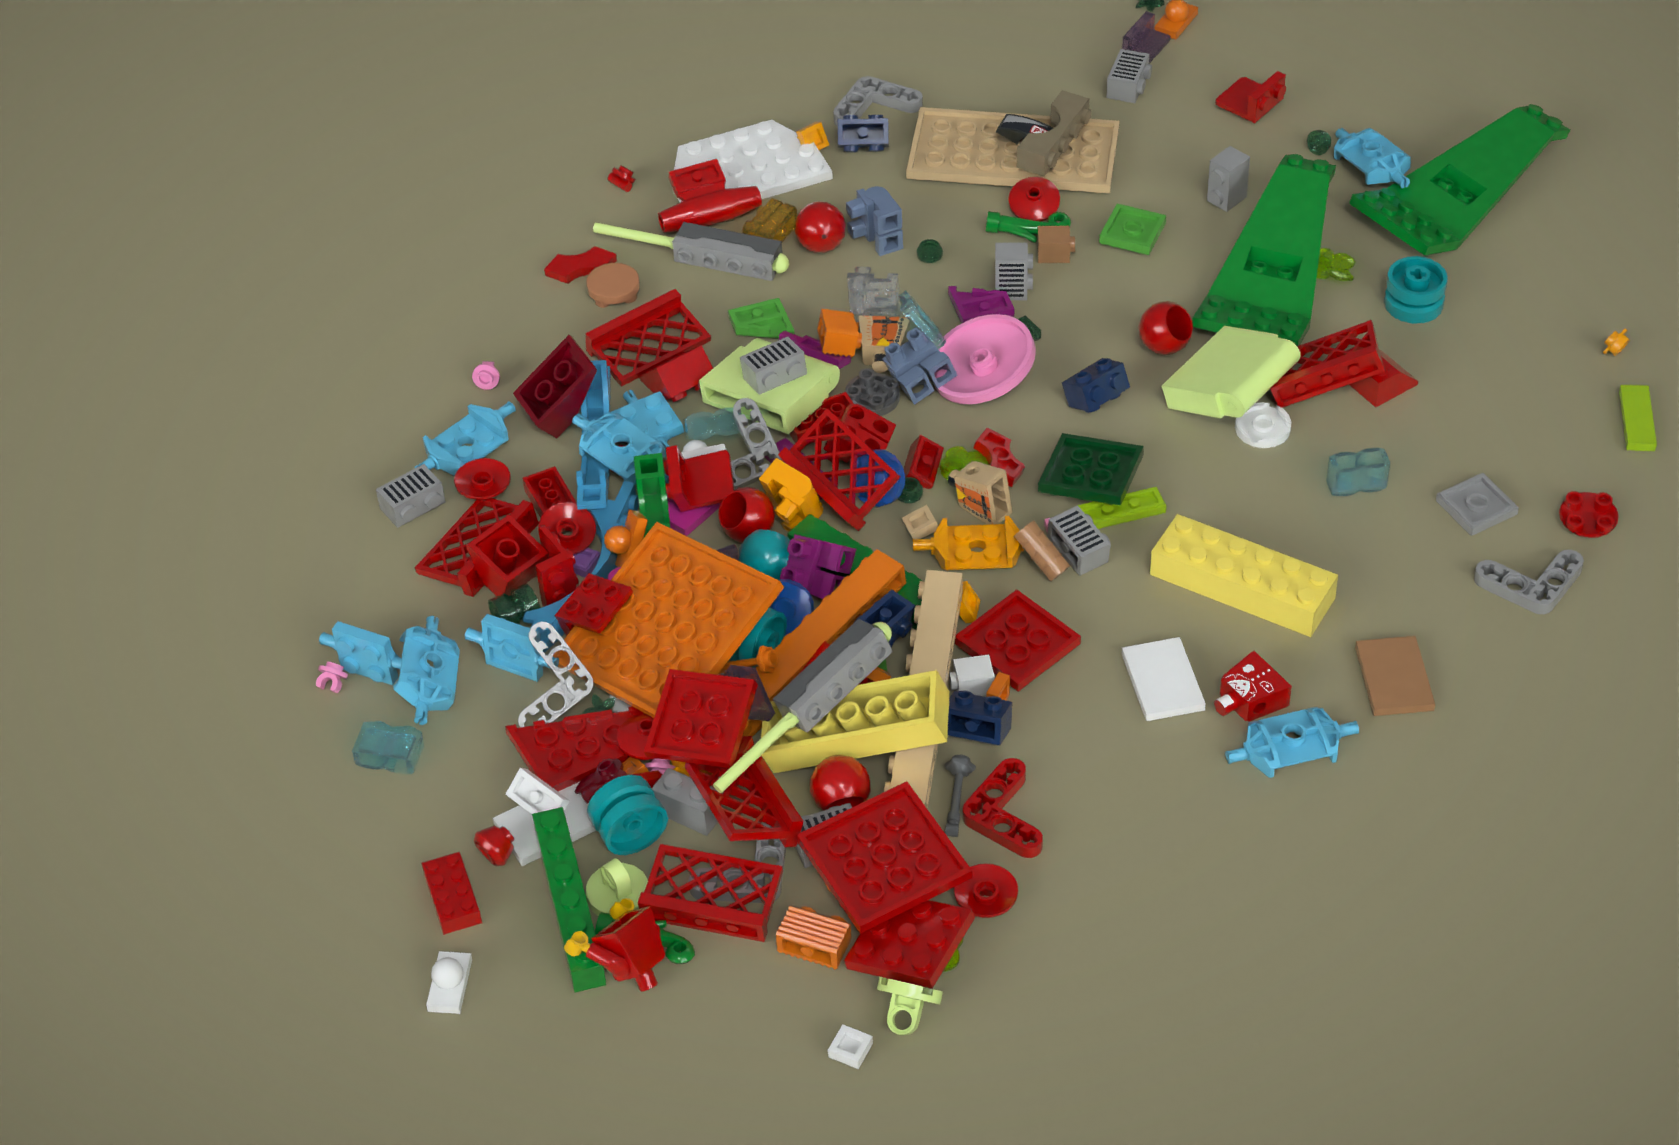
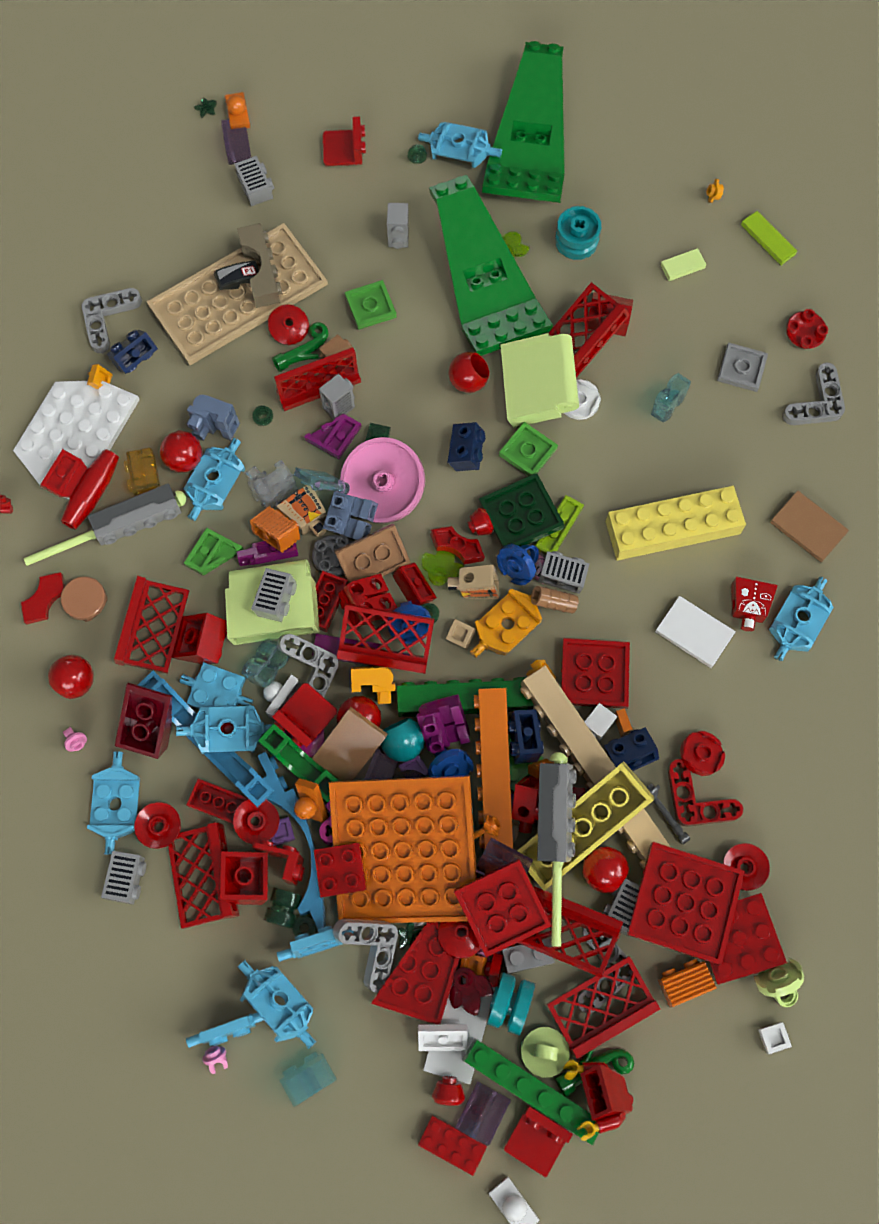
camera: 45 degrees left, 25 degrees up
(507, 893) = (483, 1114): none -> clear purple panel
(530, 946) = (537, 1141): none -> red bracket
(535, 324) = (71, 676): none -> red helmet
(717, 519) = (349, 746): none -> medium nougat tile
(811, 275) = (208, 493): none -> medium azure plate
(910, 406) = (373, 554): none -> medium nougat tile
(982, 254) = (307, 389): none -> red fence
(1038, 496) = (518, 563): none -> blue tile
(1040, 450) = (480, 522): none -> red cone
(1051, 773) = (702, 753): none -> red tile
(1159, 428) = (528, 450): none -> bright green plate
(1509, 384) = (683, 264): none -> yellowish green tile

